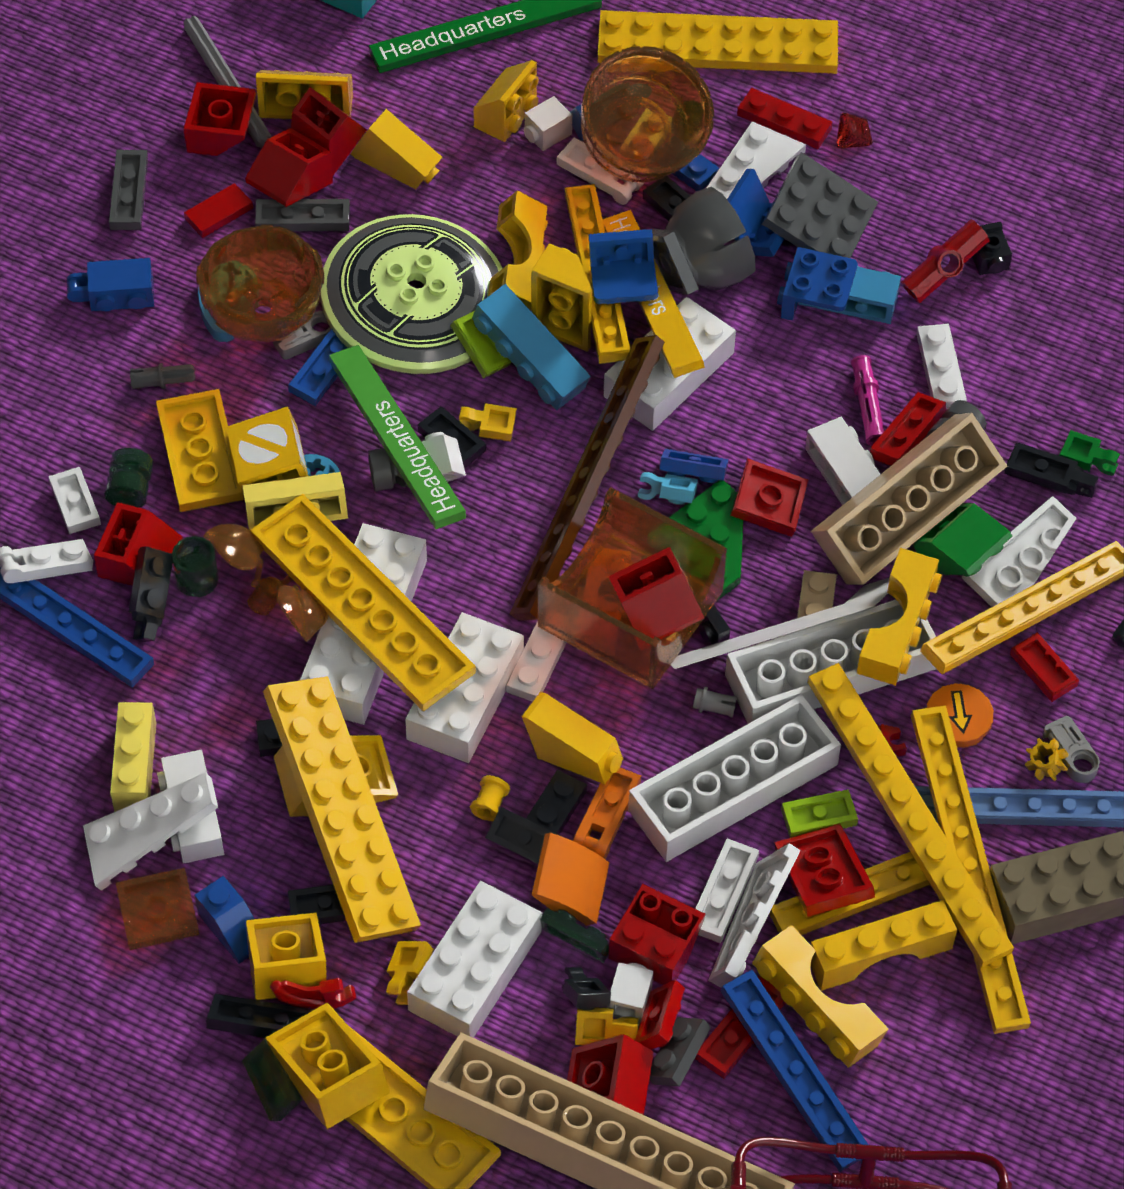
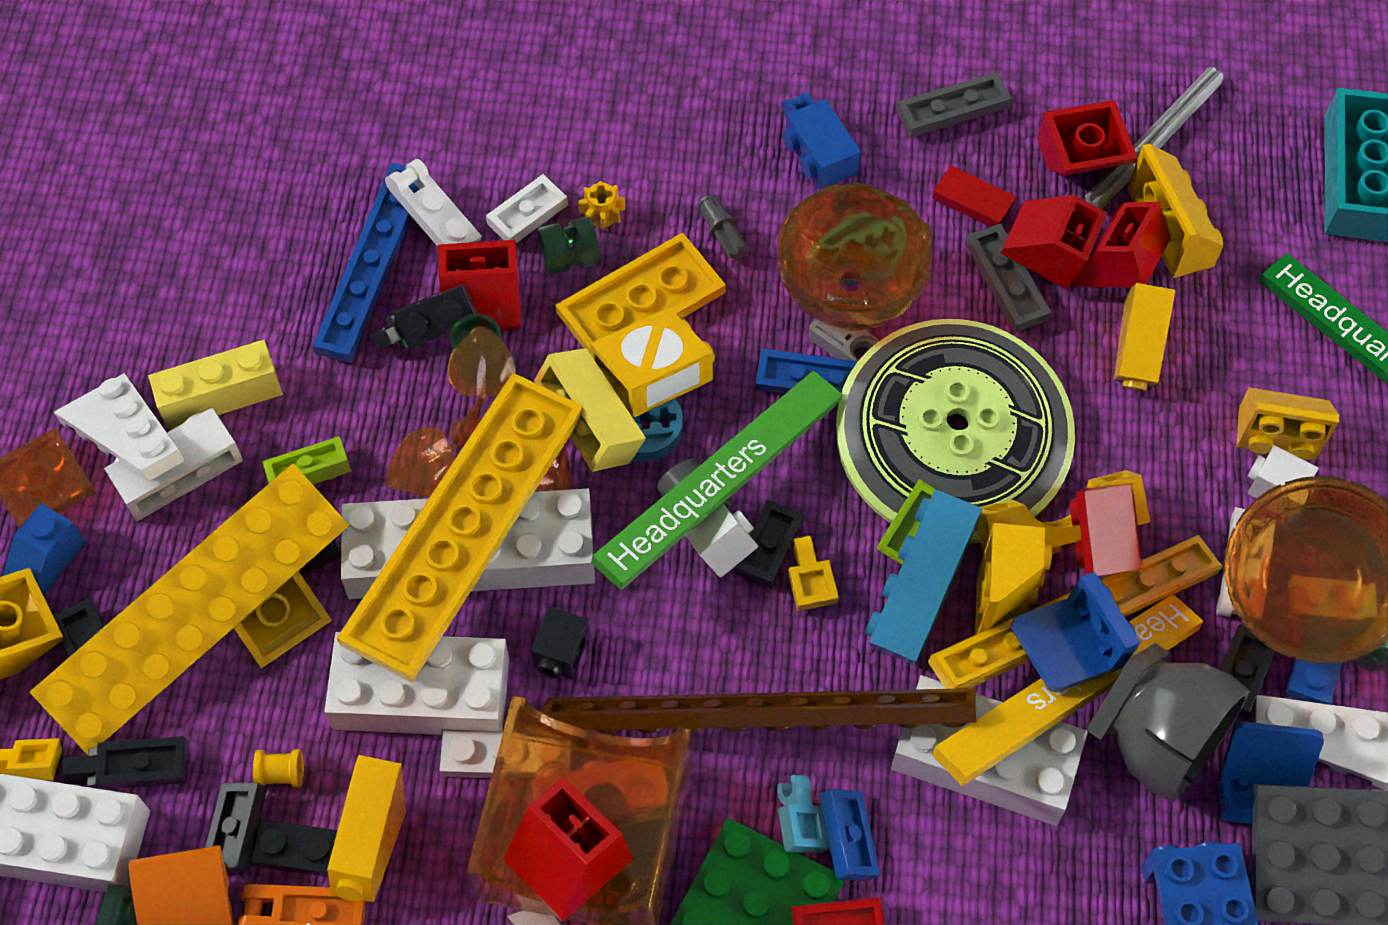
camera: 70 degrees right, 5 degrees up
(98, 446) = (602, 204): none -> yellow gear
(240, 714) = (316, 462): none -> lime plate
(442, 895) = (131, 763): none -> black hinge
(472, 589) = (560, 643): none -> black brick
(551, 221) = (1107, 529): none -> slope

